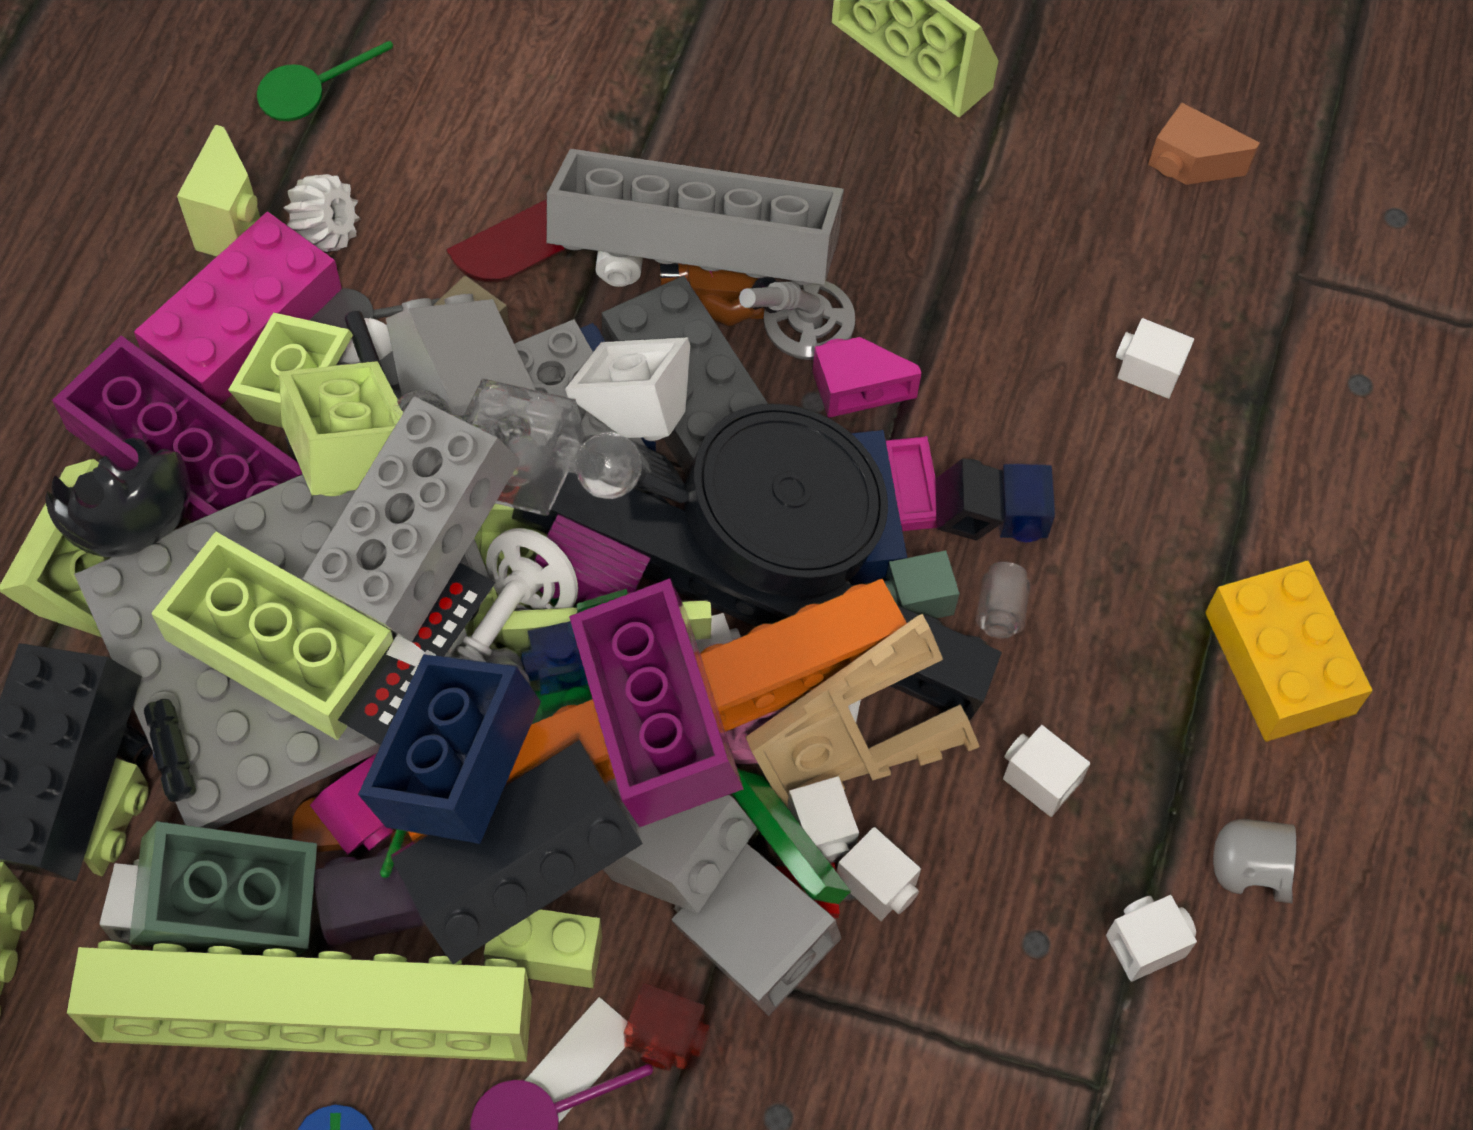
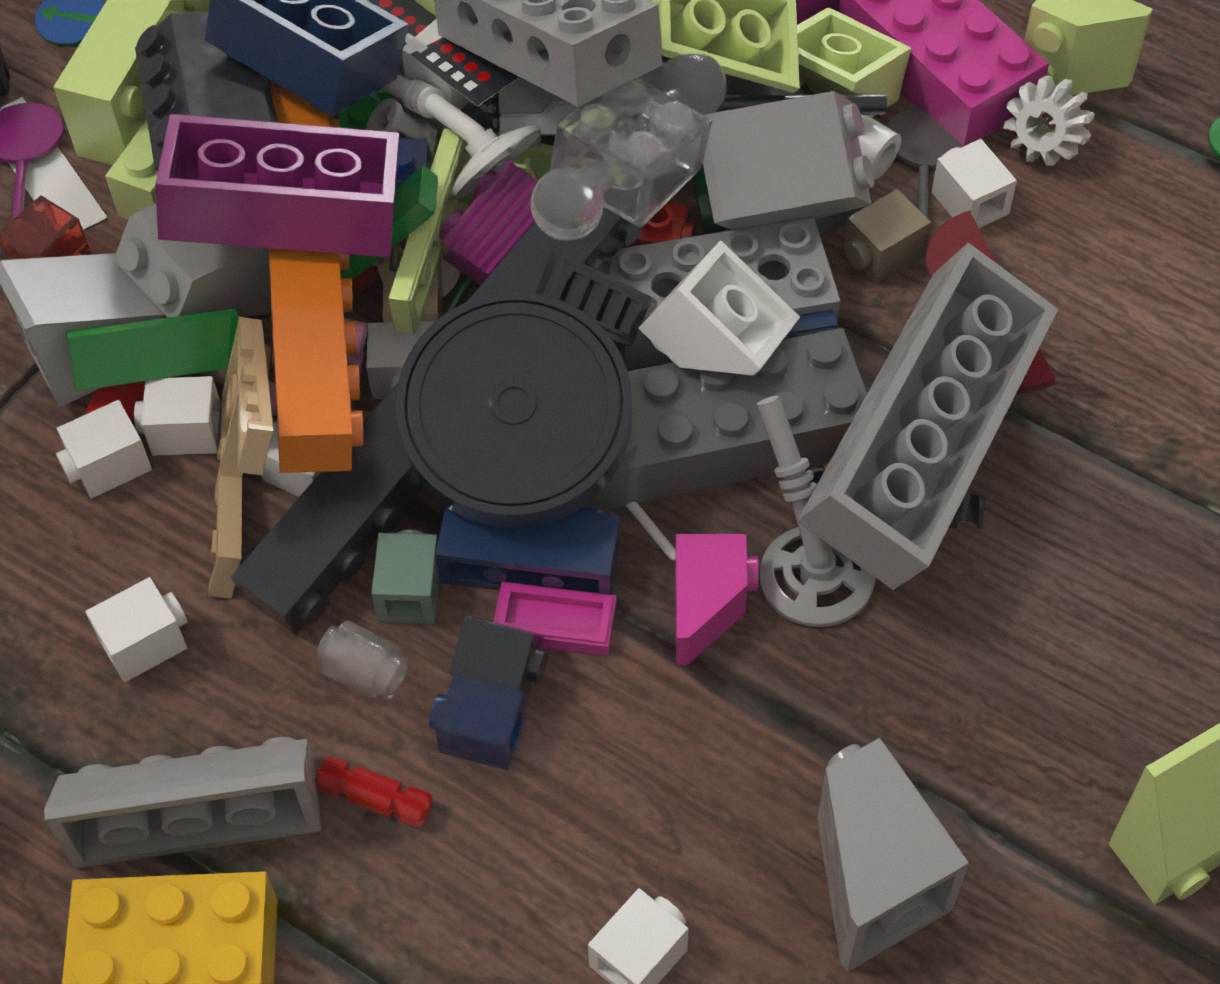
camera: 110 degrees right, 5 degrees down
(399, 265) = (975, 182): none -> white brick
(1047, 218) = (882, 854): none -> light grey slope
(1103, 565) = (374, 791): none -> red axle
(1176, 675) = (185, 802): none -> light grey slope

